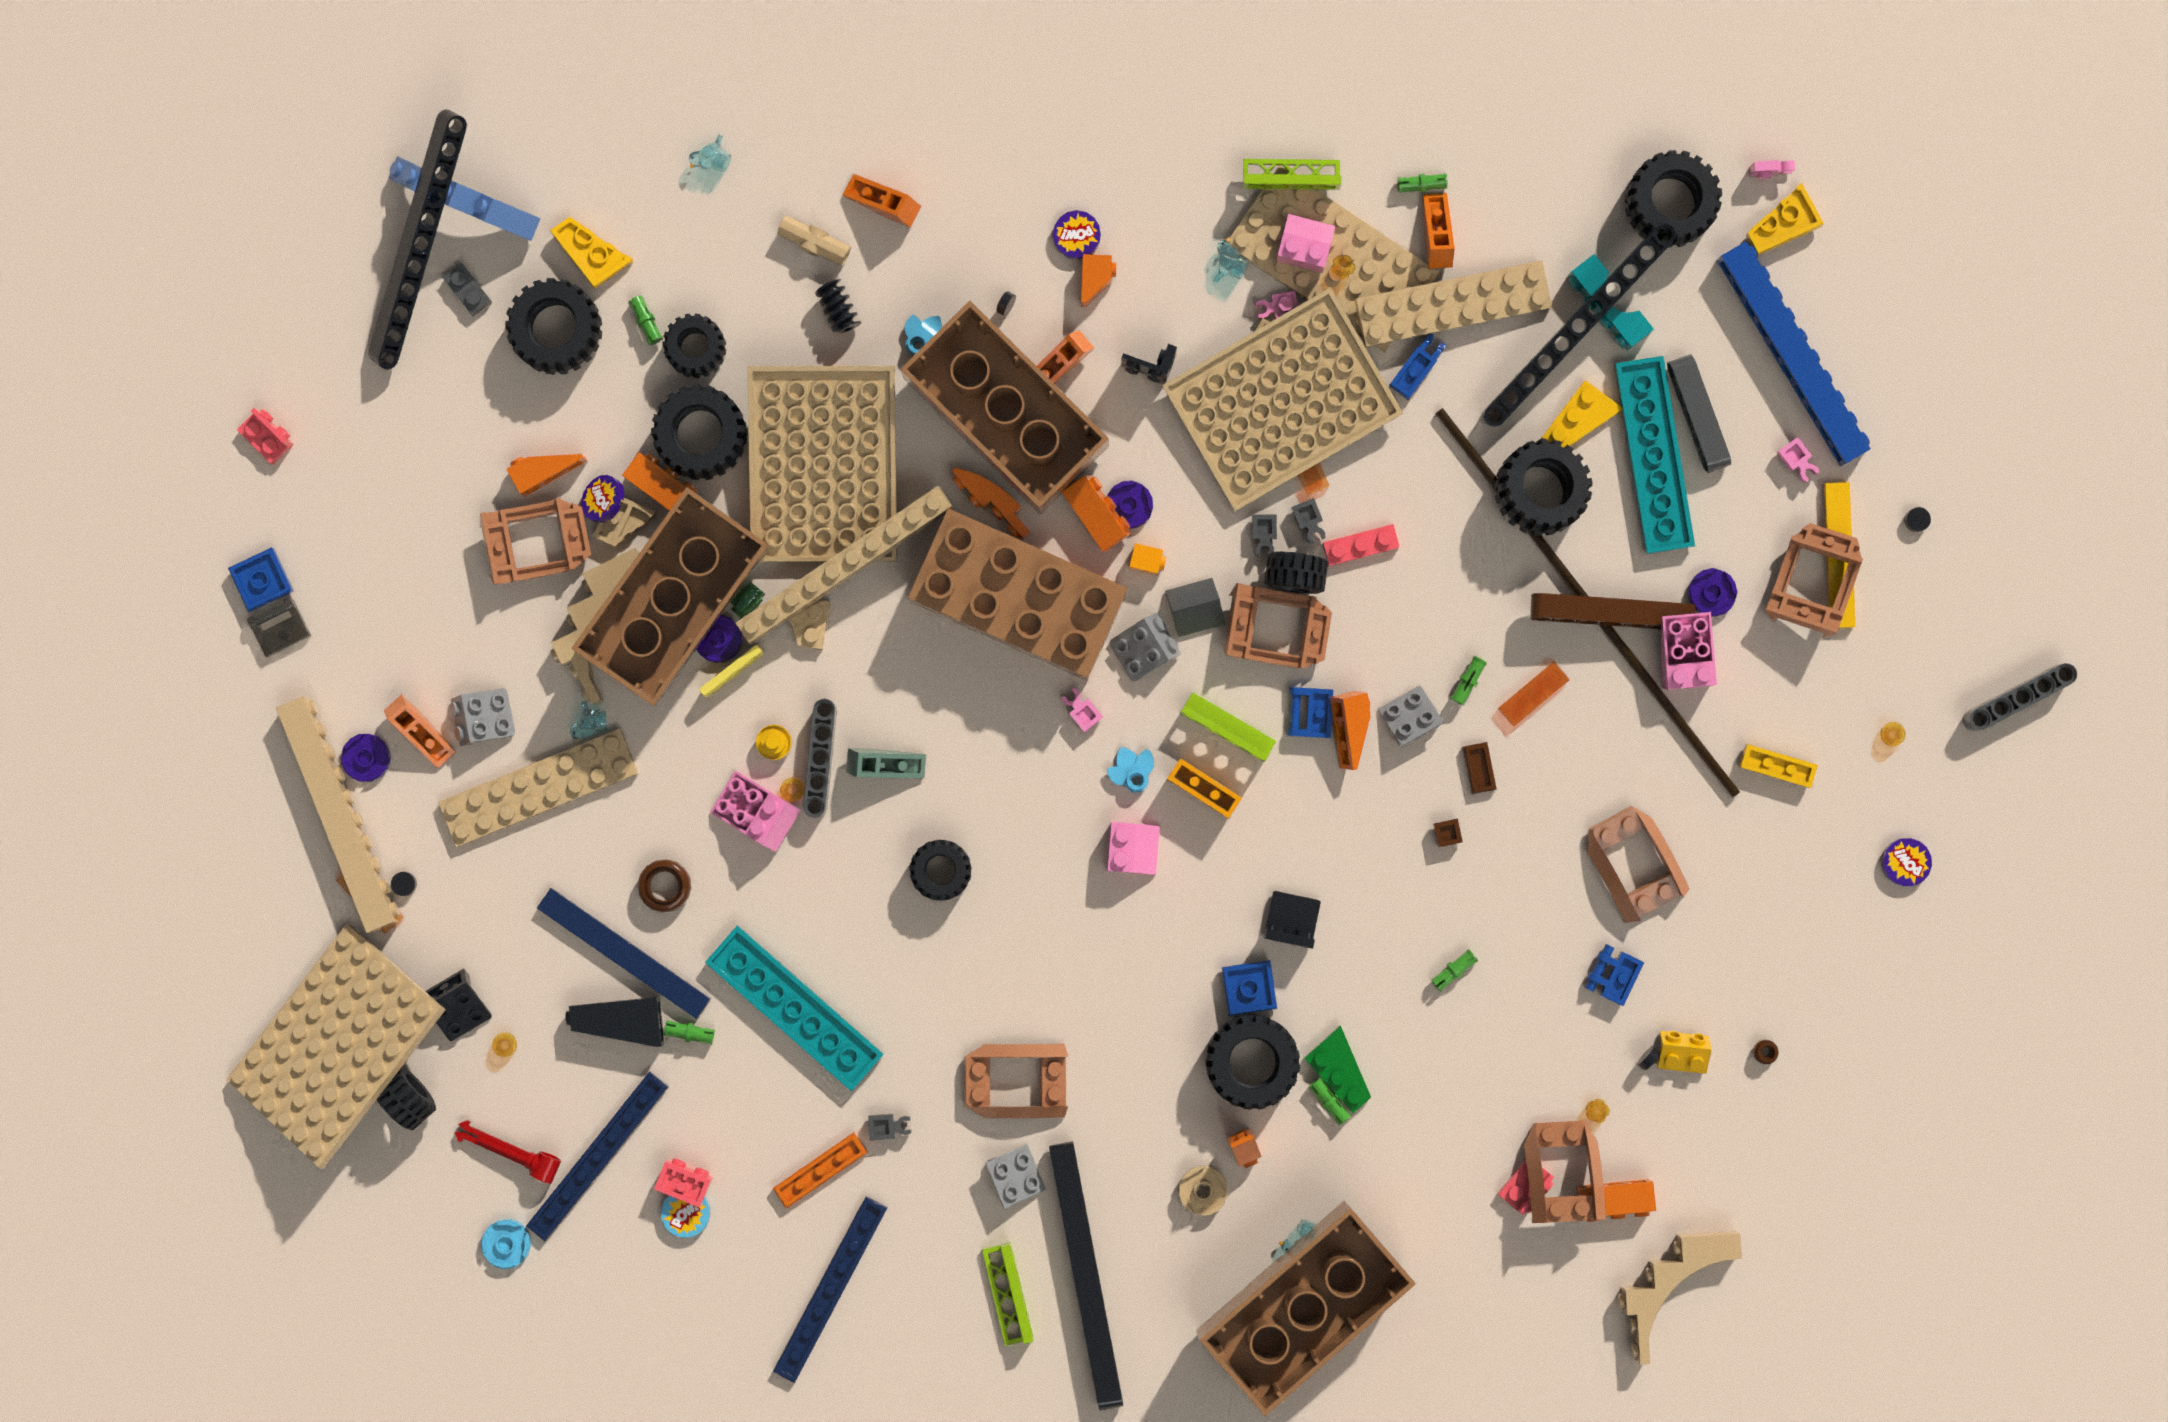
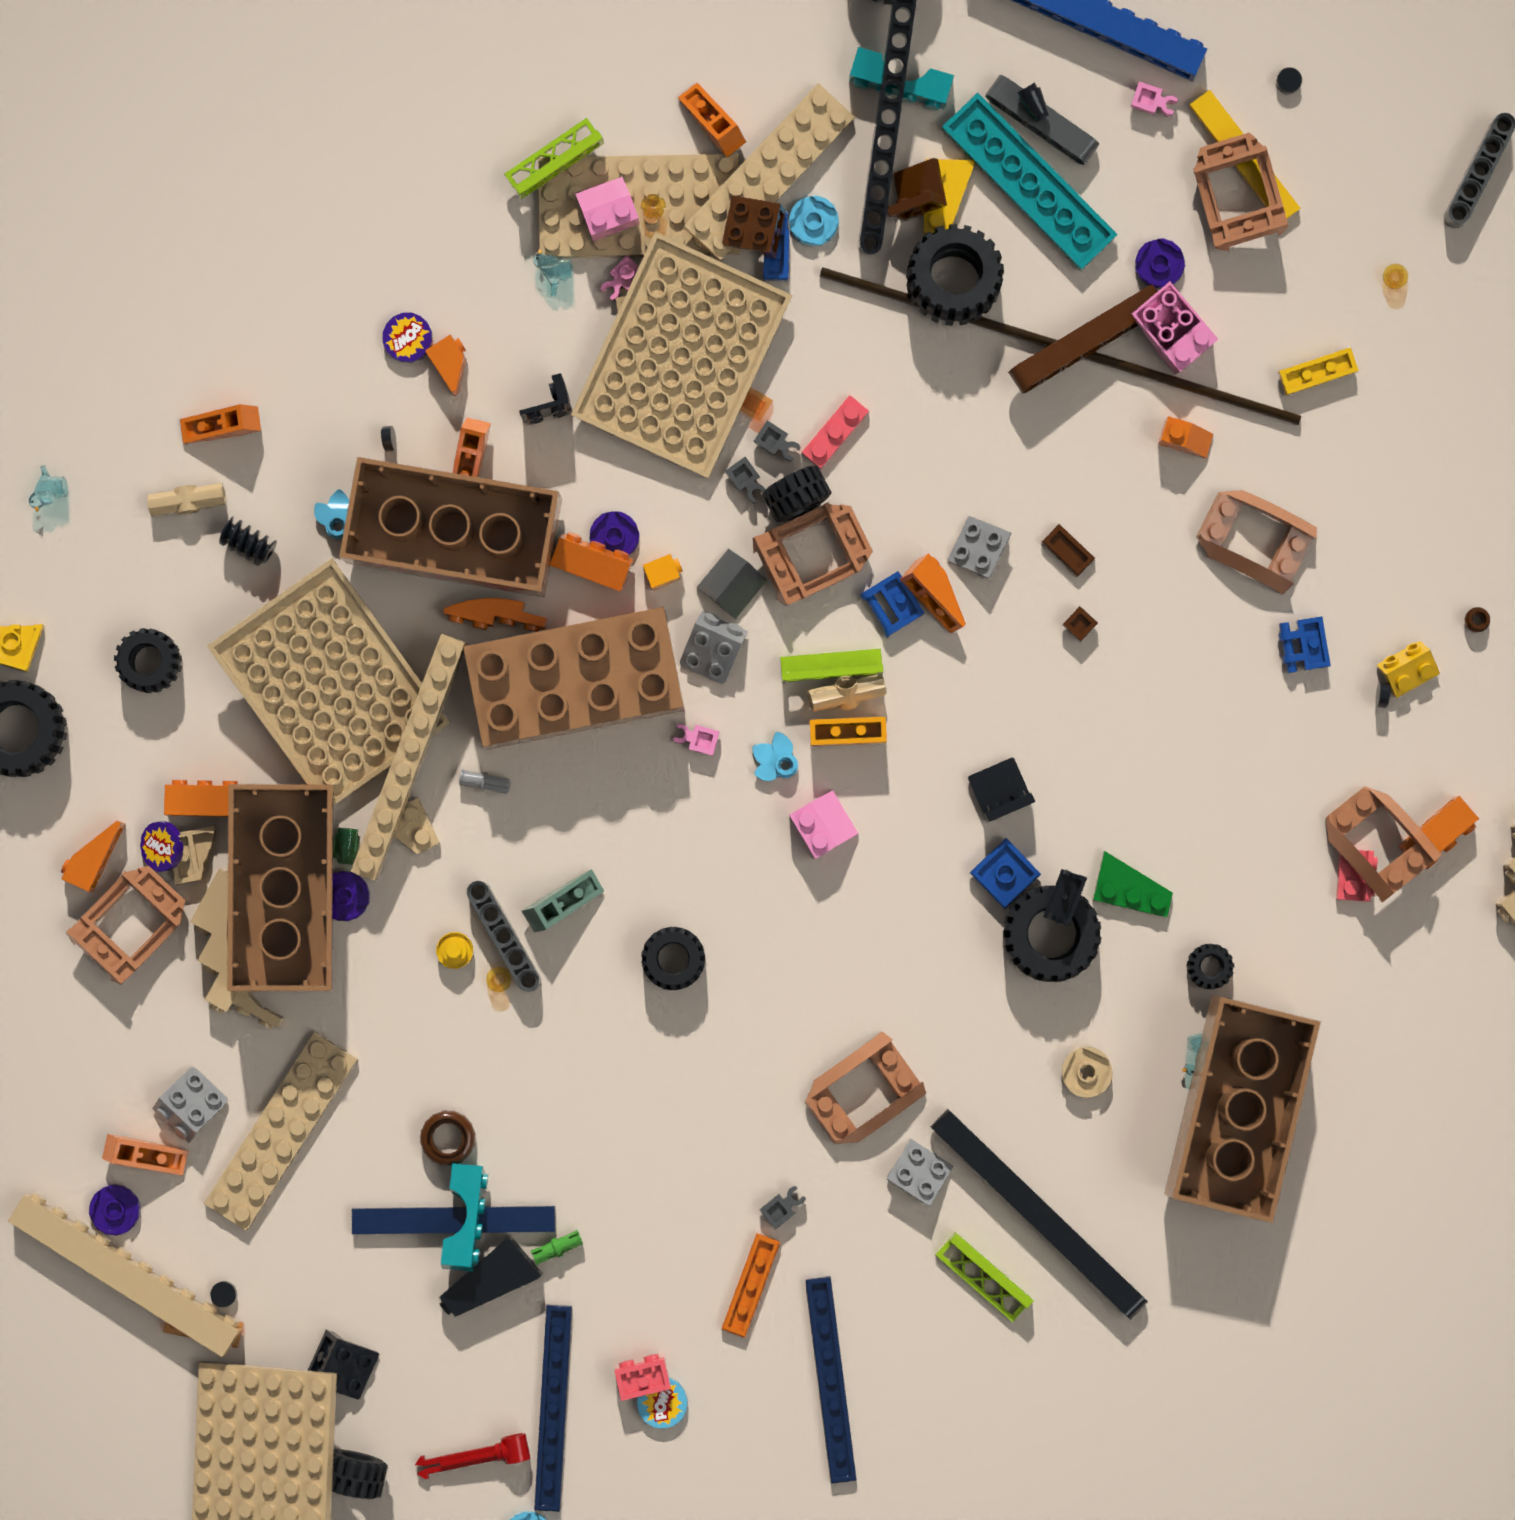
camera: 30 degrees left, 0 degrees up
(496, 1045) = (398, 1369): clear yellow plate -> none
(588, 723) = (284, 1045): clear light blue animal -> none
(611, 980) = (460, 1250): none -> teal arch
(645, 320) = (90, 668): bright green pin -> none
(681, 405) = (170, 731): black tyre -> none
(731, 671) = (376, 915): light yellow tile -> none
(755, 811) = (480, 1020): bright pink slope -> none
(794, 1008) = (631, 1163): teal plate -> none
(890, 626) = (484, 781): none -> light grey axle
(1224, 757) = (846, 692): none -> tan piece
(1244, 1148) = (1096, 1011): orange slope -> none
(1283, 1041) = (1065, 897): none -> black hinge
(1329, 1101) = (1140, 921): bright green pin -> none
(1349, 1165) = (1221, 955): none -> black tyre
(1412, 337) = (754, 225): none -> reddish brown bracket
(1422, 183) = (670, 88): bright green pin -> none
(1454, 970) = (1167, 736): bright green pin -> none
(1460, 695) = (1005, 465): bright green pin -> none
(1461, 366) = (813, 221): none -> medium azure tile
(1533, 694) = (1069, 455): clear orange tile -> none
(1561, 400) = (918, 190): none -> reddish brown bracket
(1597, 1104) = (1377, 769): clear yellow plate -> none
(1635, 744) = (1185, 437): none -> orange slope
(1703, 394) = (1033, 101): none -> black cone
(1906, 862) = (1483, 376): tile -> none

